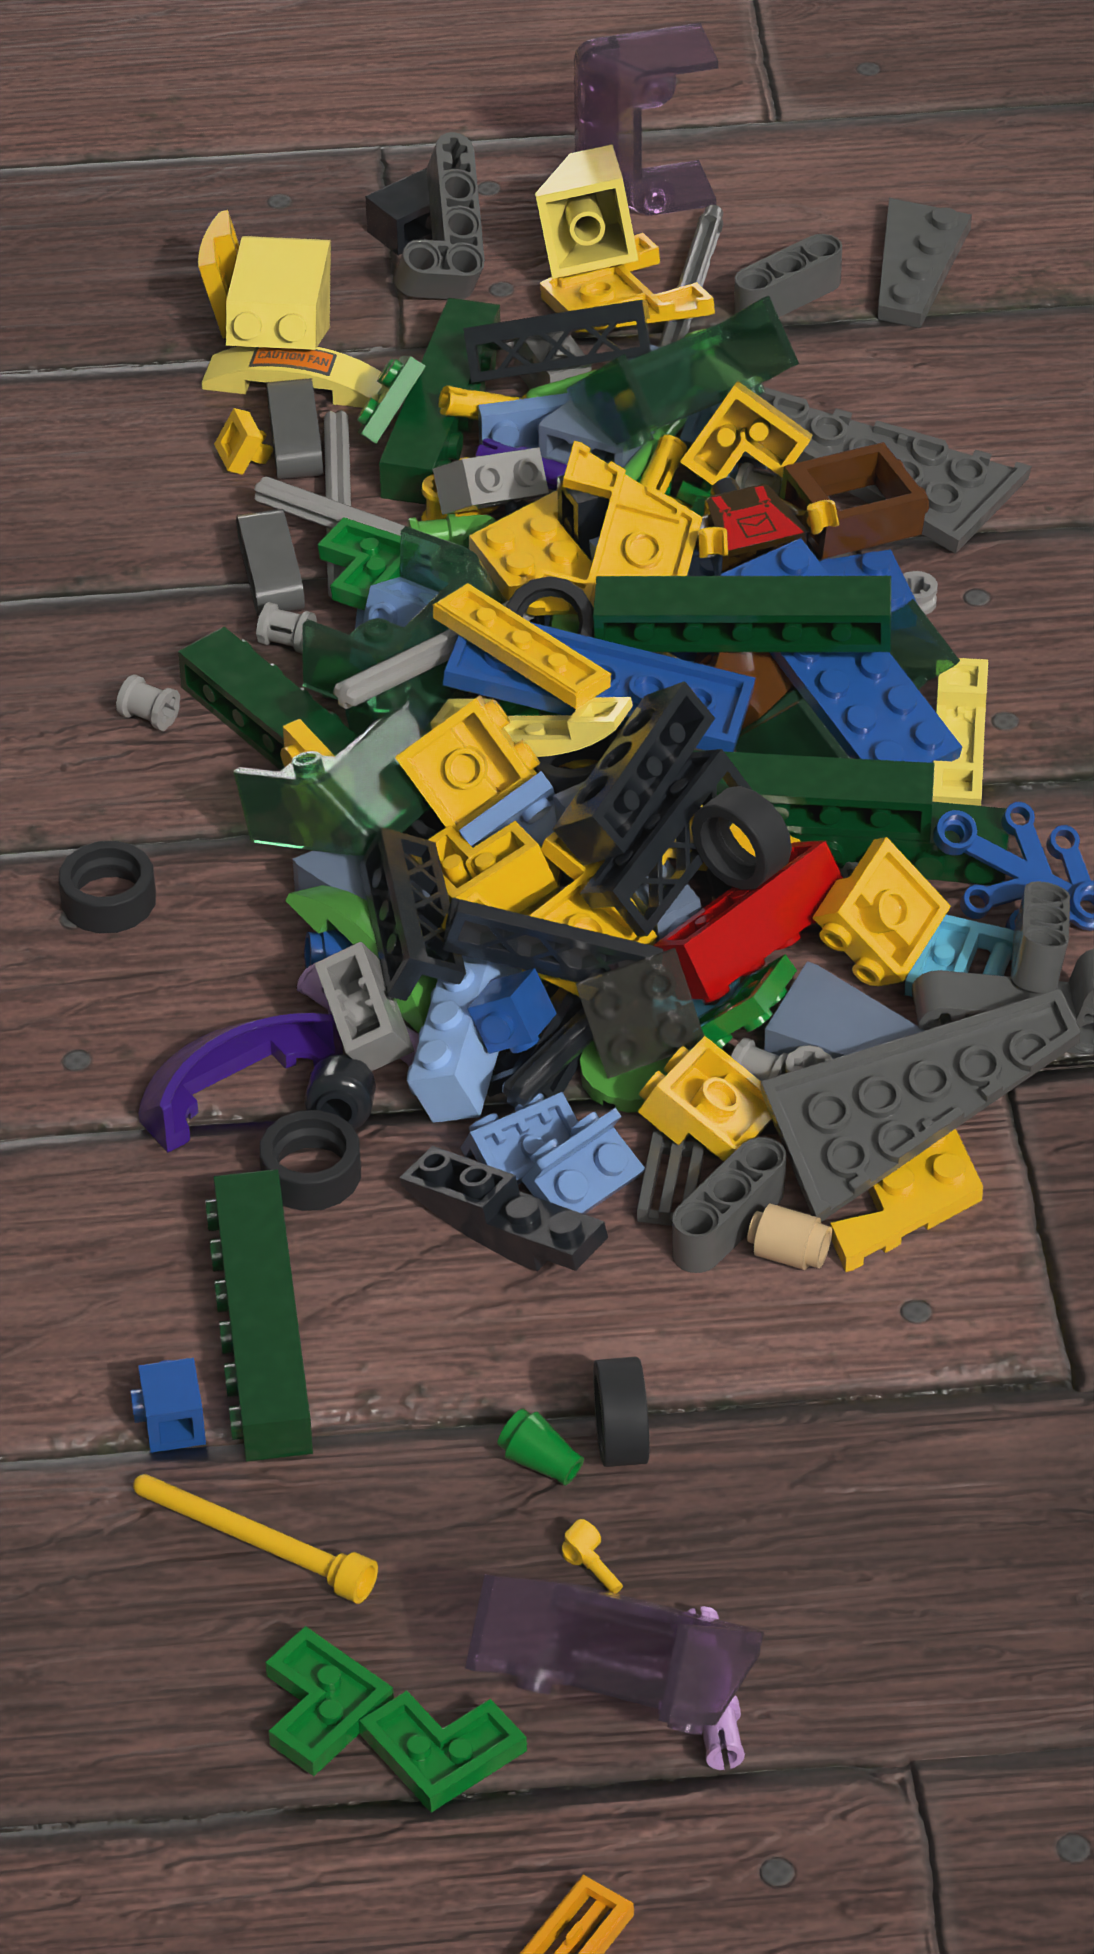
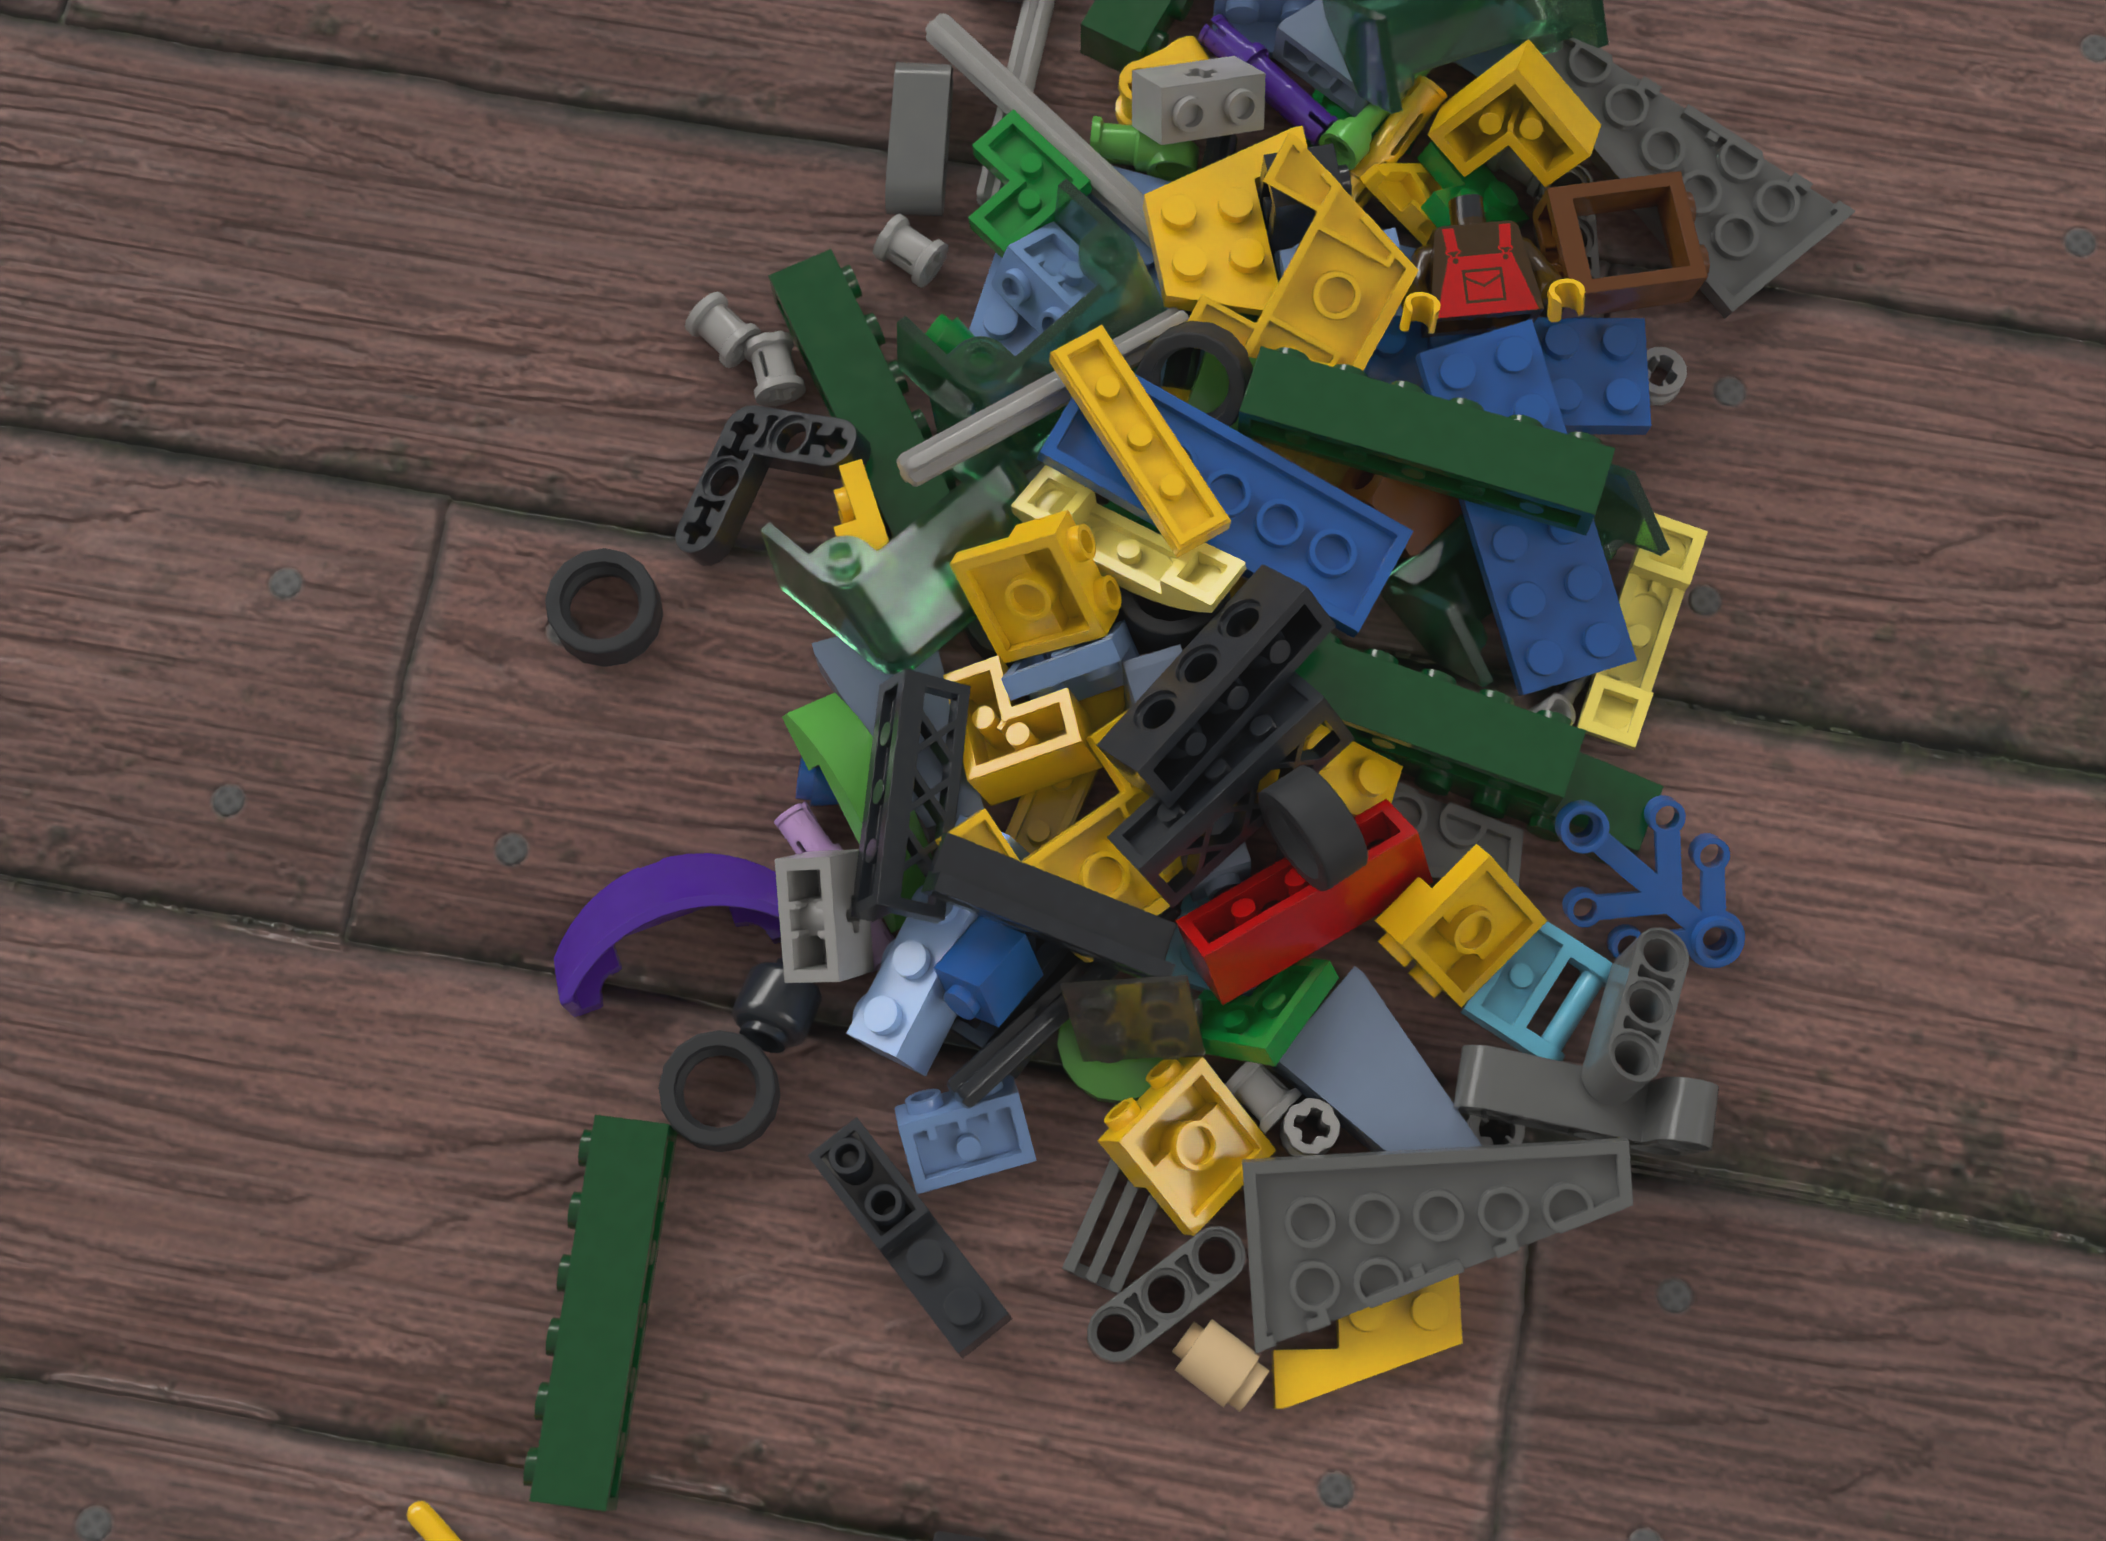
camera: 15 degrees right, 30 degrees up
(169, 1404) = (470, 1417): blue brick -> none
(198, 763) = (760, 440): none -> black beam
(203, 713) = (774, 368): none -> light grey bush
(585, 1166) = (1015, 1199): medium blue bracket -> none

